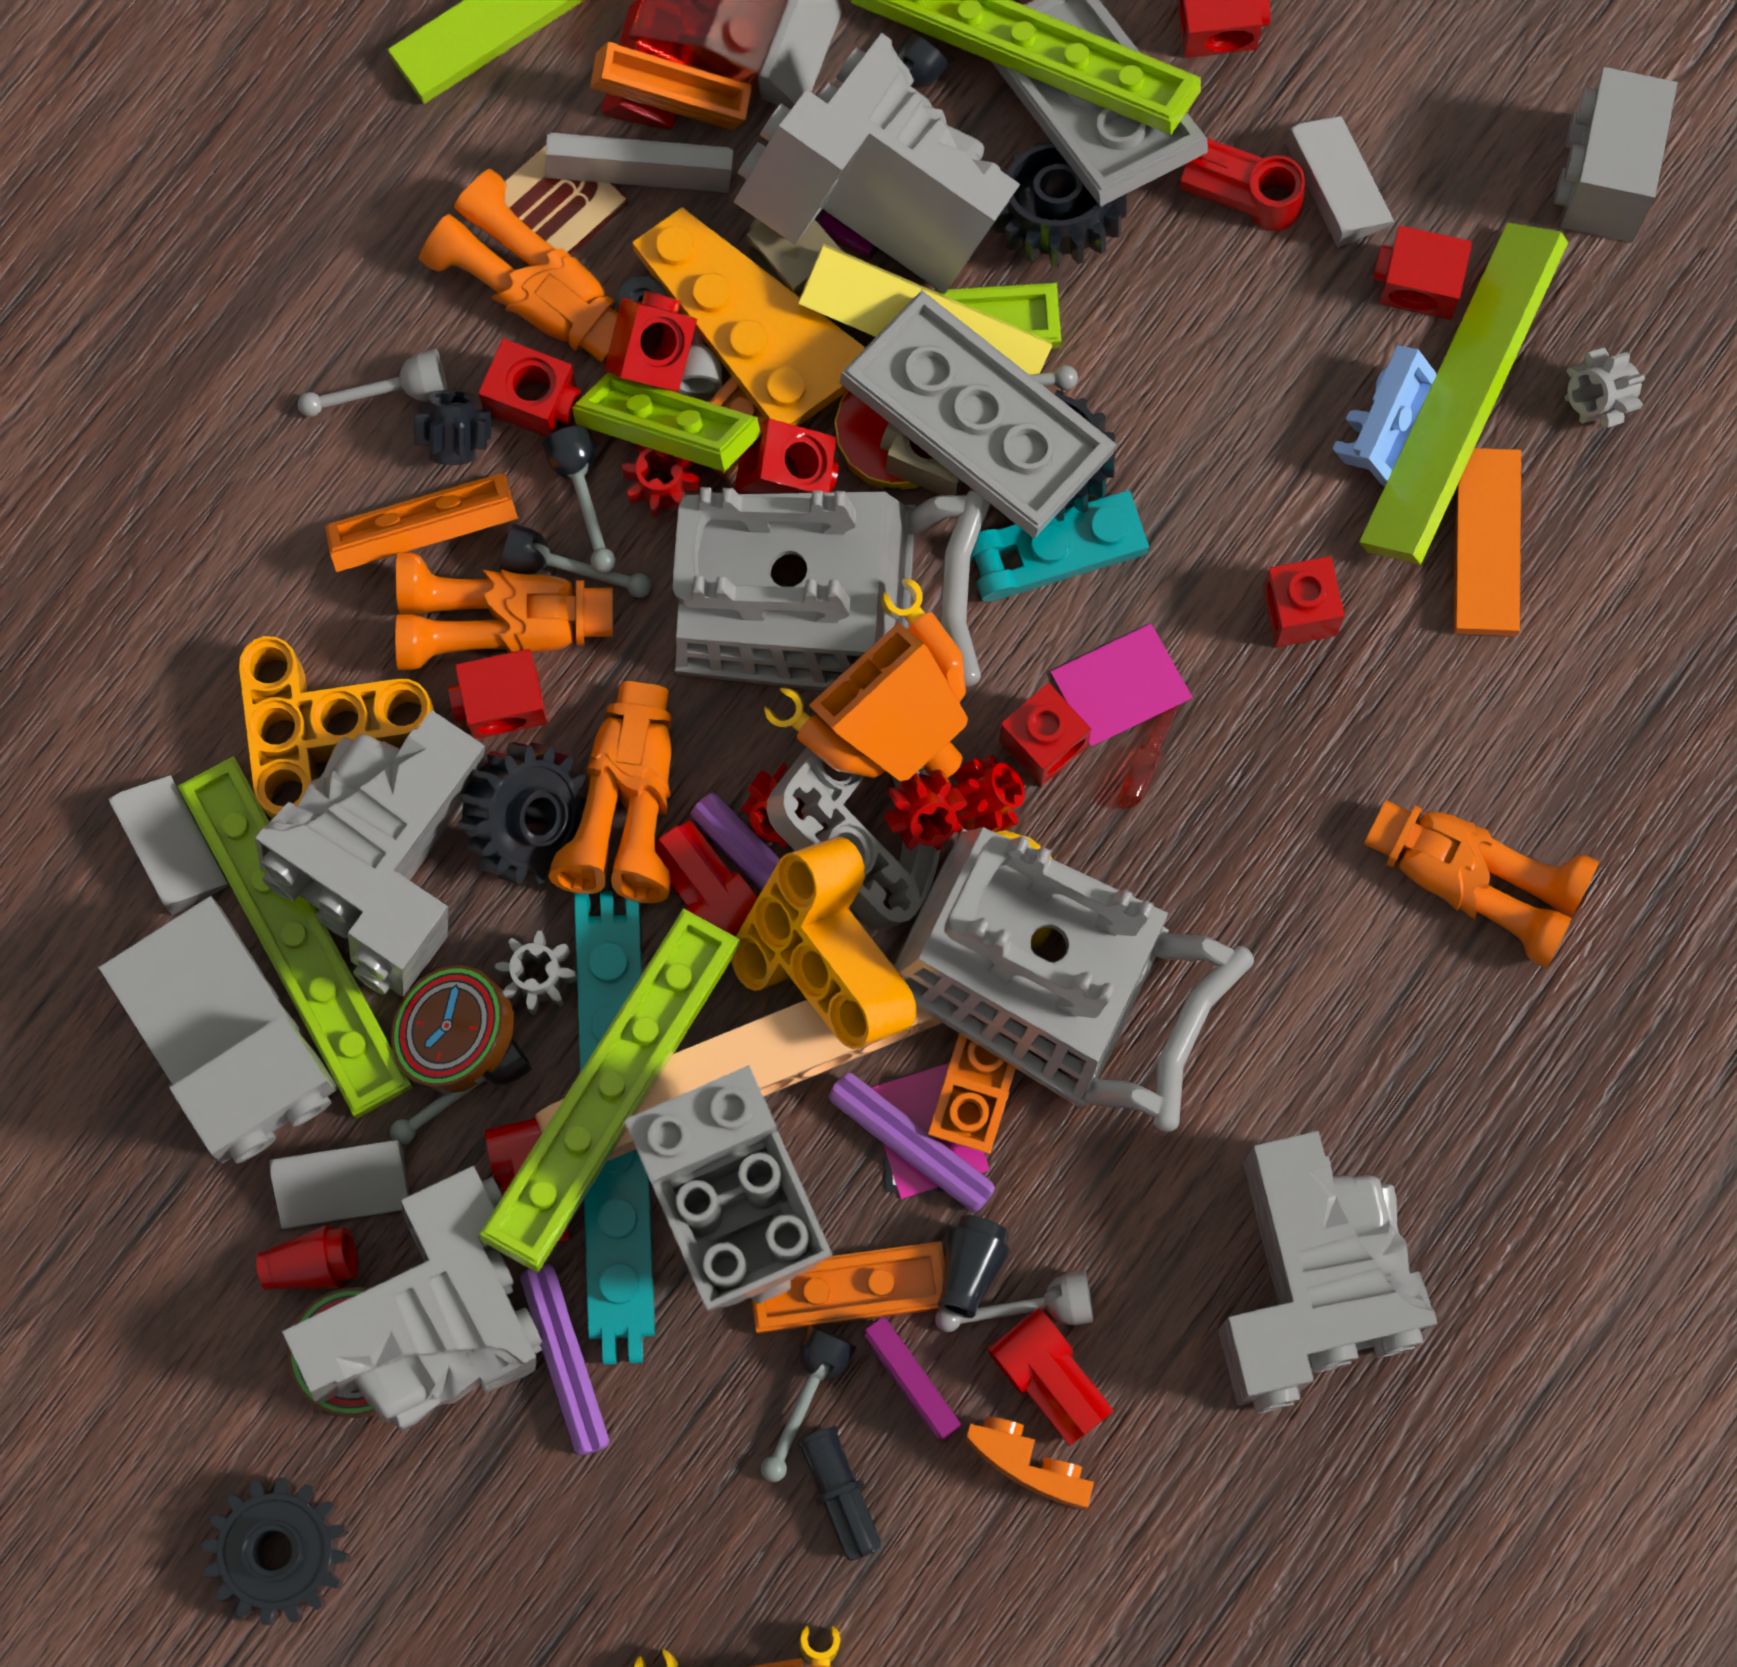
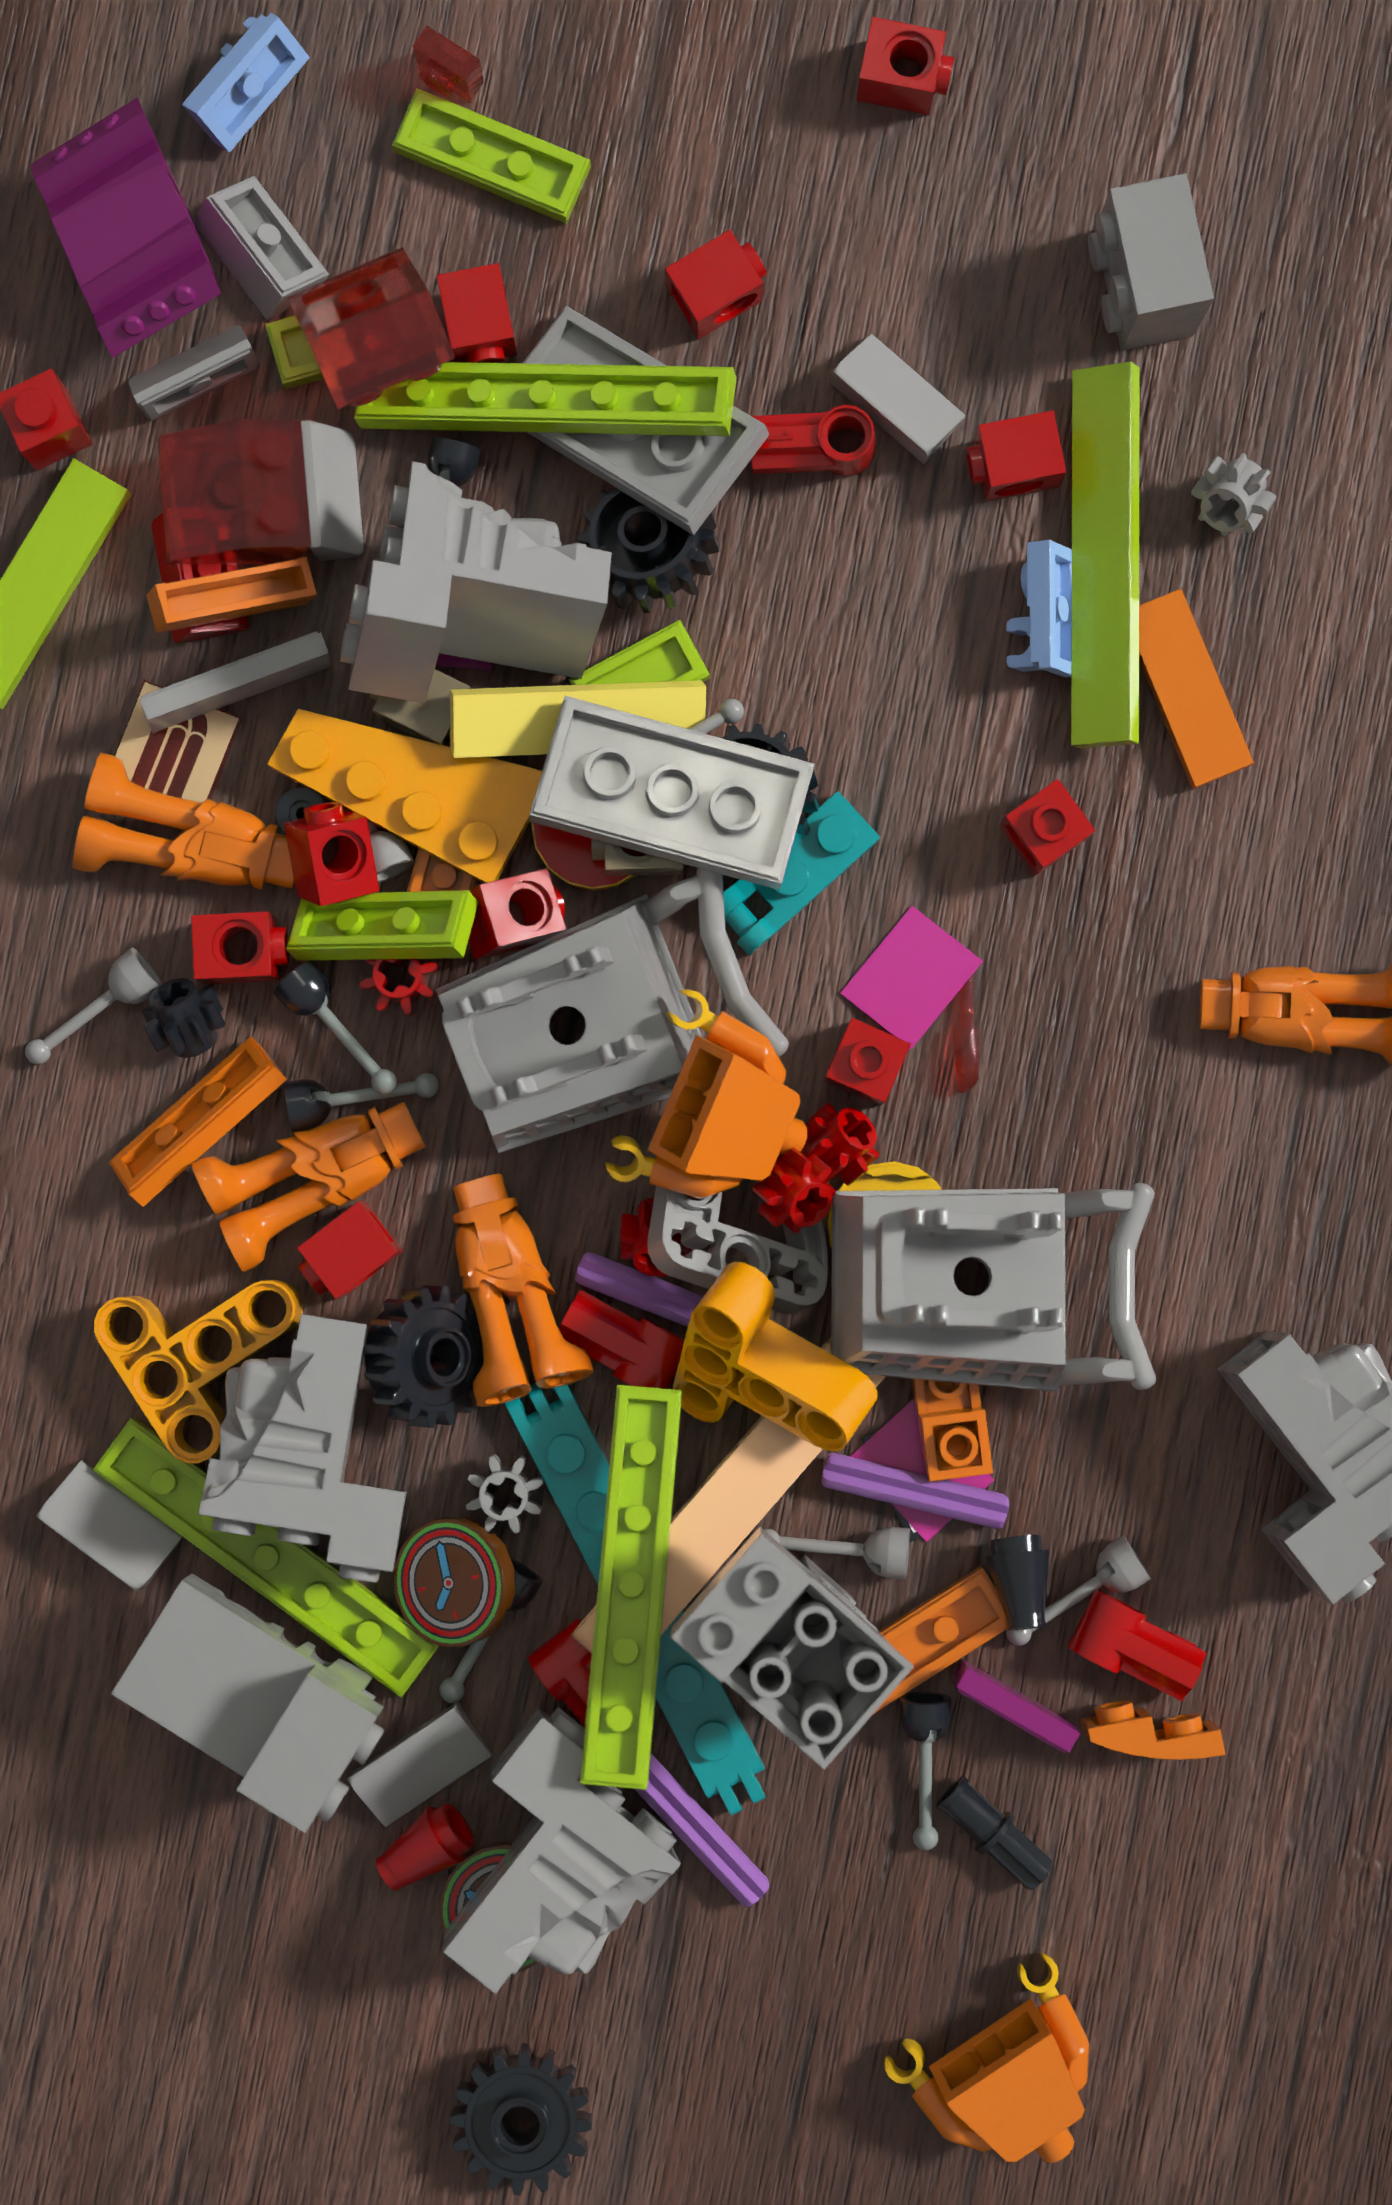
camera: 25 degrees left, 10 degrees up
(857, 1185) = (884, 1551): none -> light grey hinge

